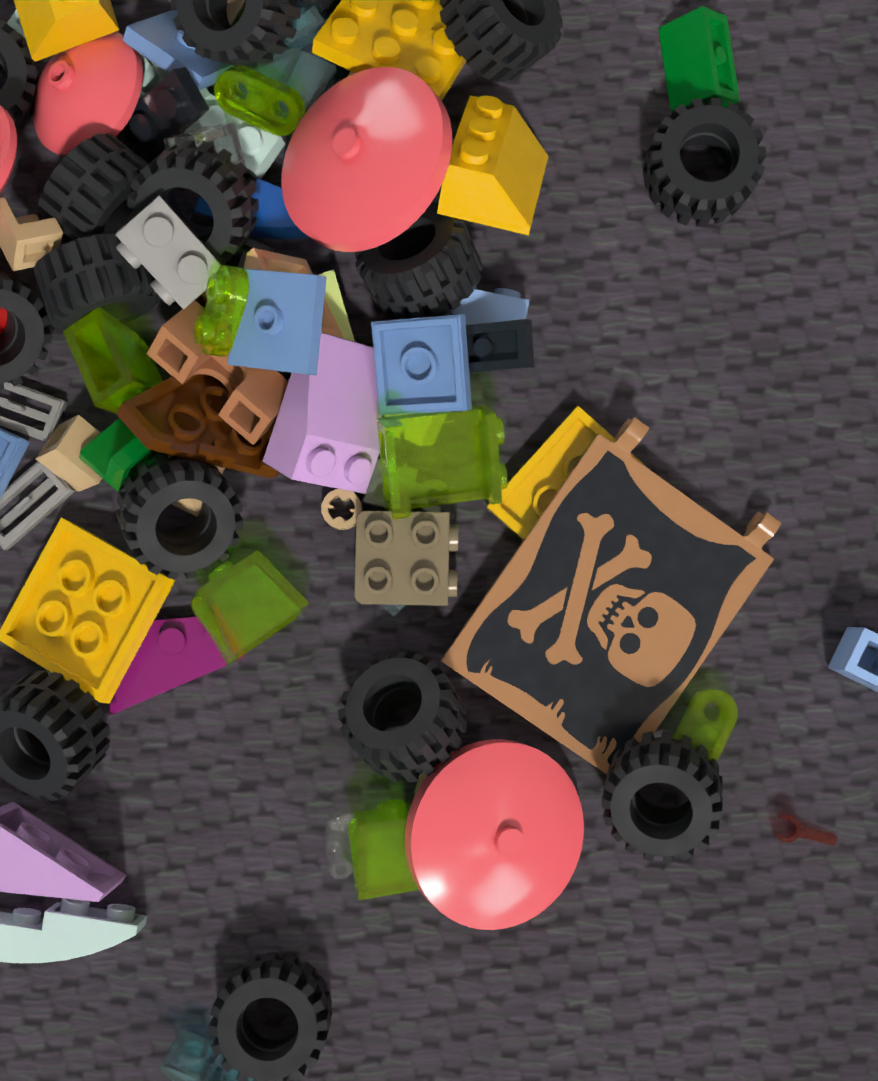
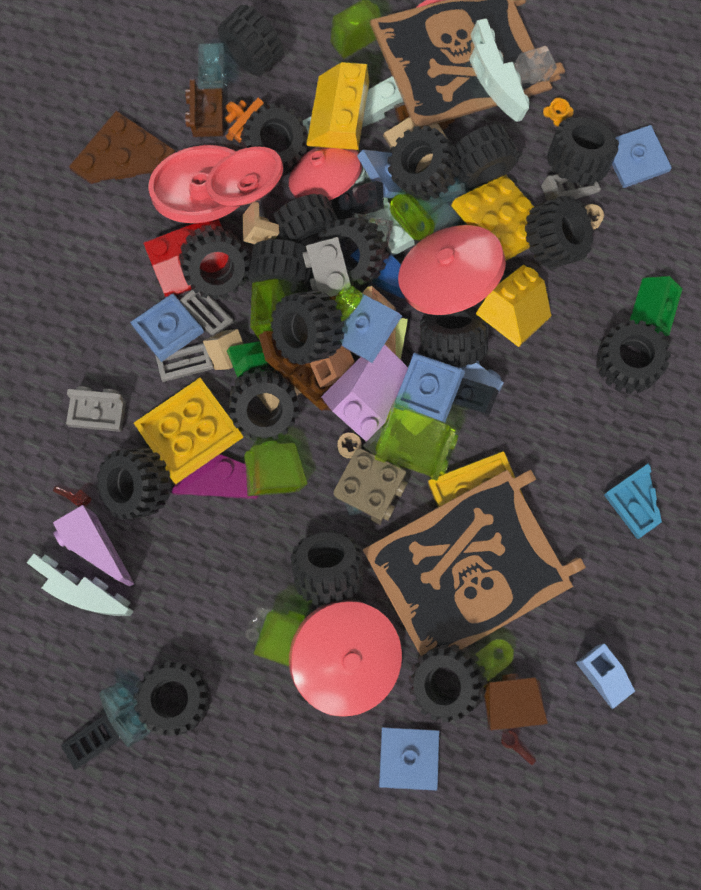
camera: 25 degrees right, 10 degrees down
(185, 366) = (307, 327): none -> black tyre
(655, 925) = (409, 758): none -> medium blue plate
(770, 774) = (514, 703): none -> reddish brown torso
(808, 385) = (636, 502): none -> dark azure wing

